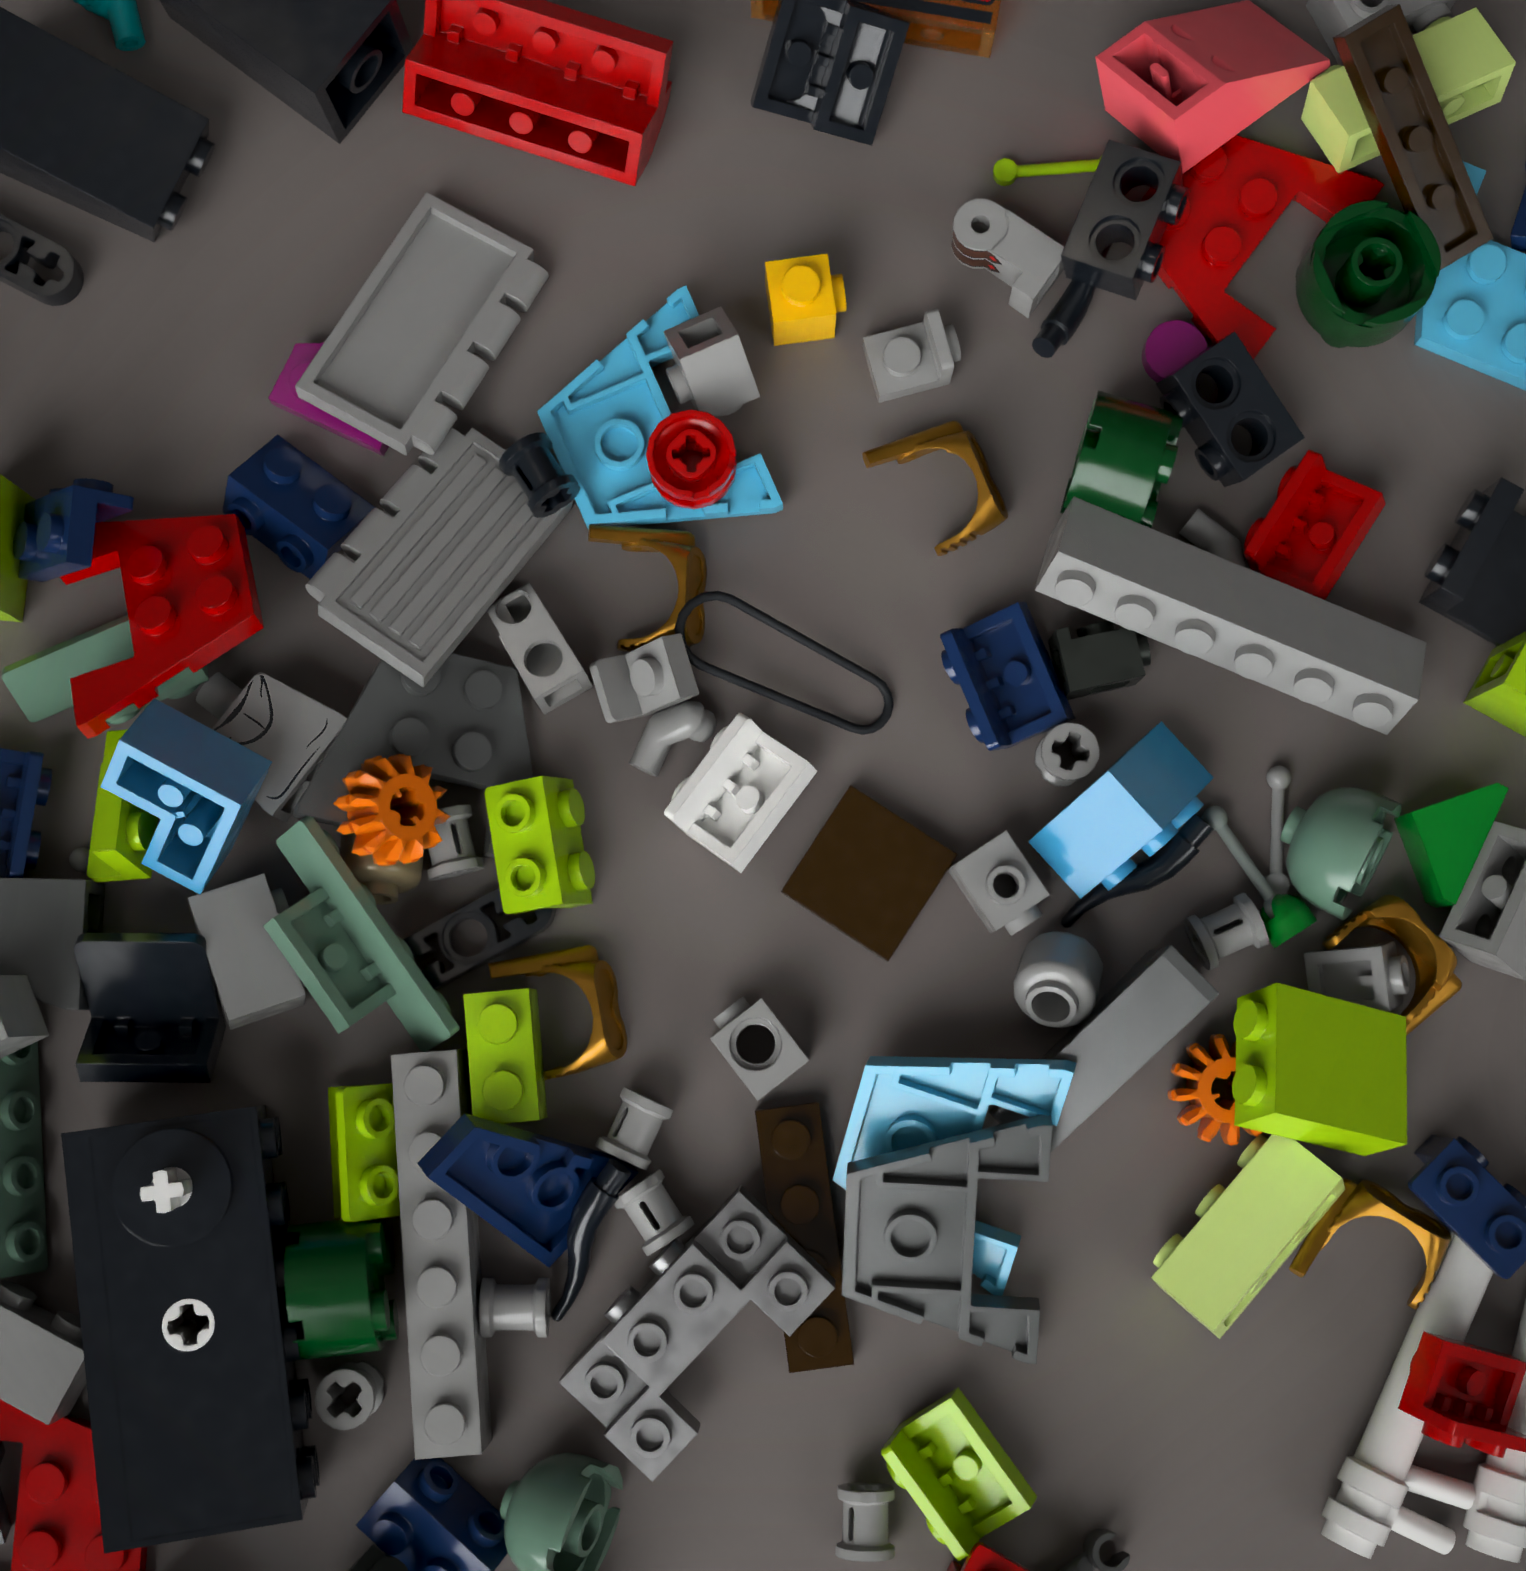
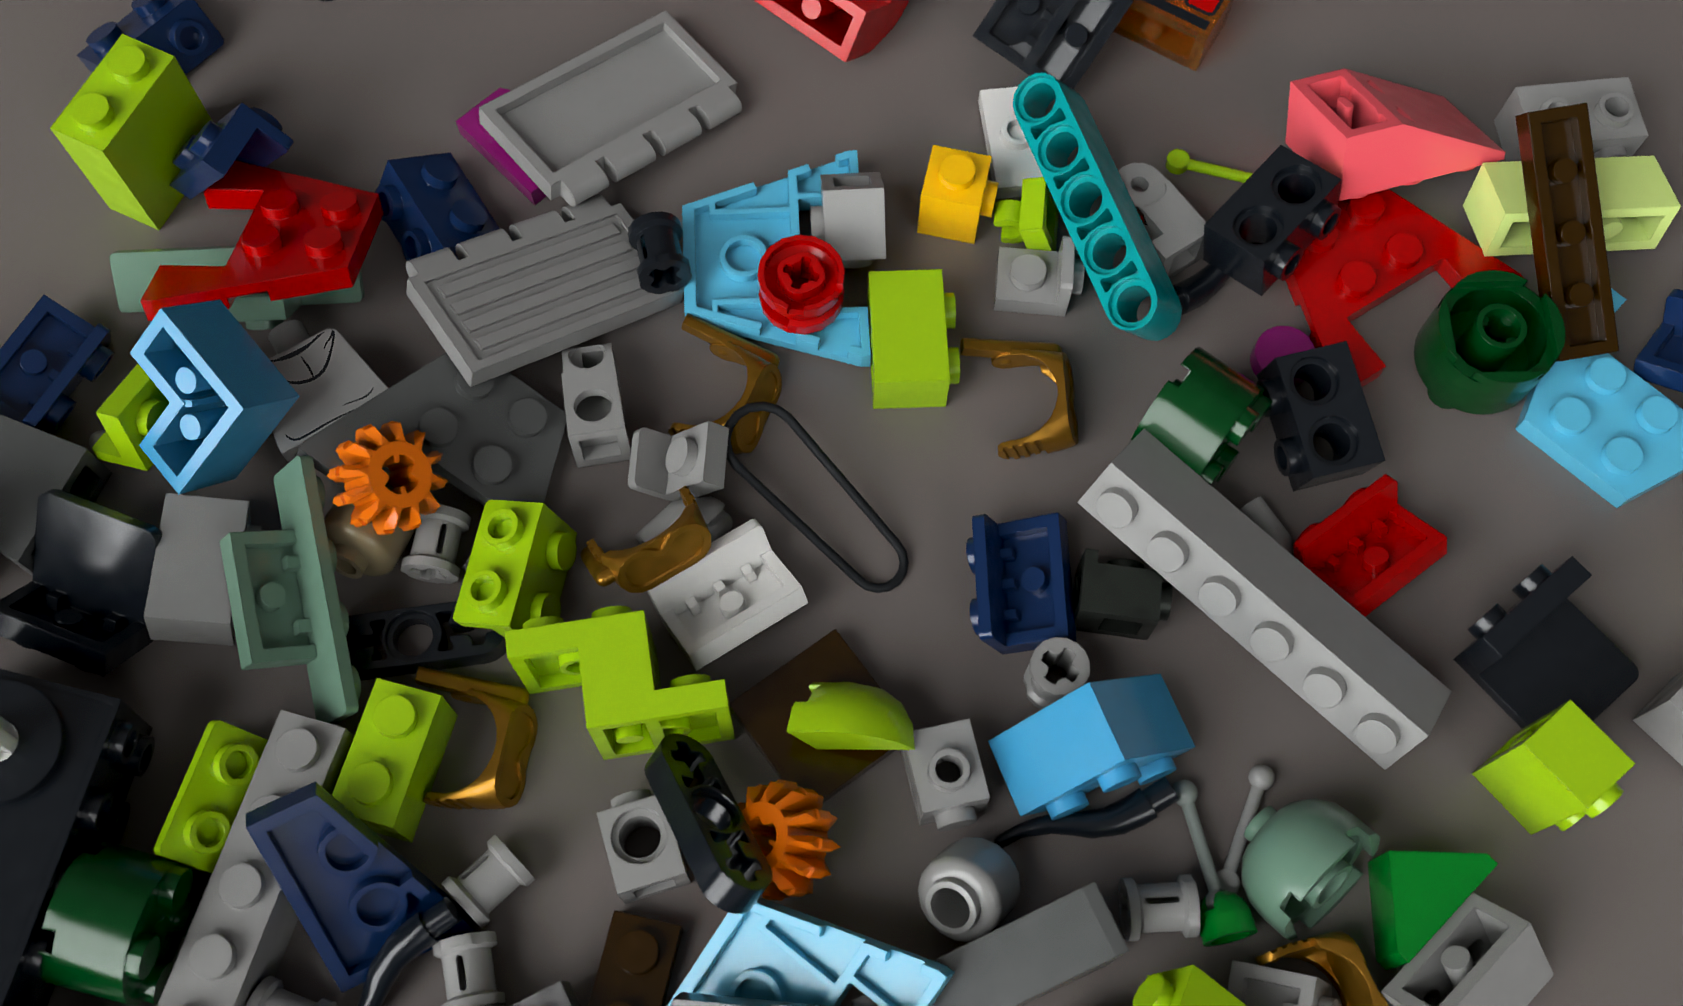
camera: 15 degrees right, 15 degrees down
(665, 798) = (655, 560): none -> pearl gold helmet
(681, 913) = (619, 680): none -> lime bracket
(813, 470) = (909, 339): none -> lime brick
(837, 210) = (1006, 142): none -> white plate
(843, 1042) = (723, 859): none -> black beam
(878, 999) = (790, 834): none -> orange gear
(886, 297) = (1031, 219): none -> lime tile
(901, 866) = (851, 718): none -> lime brick
(919, 258) = (1117, 219): none -> teal beam

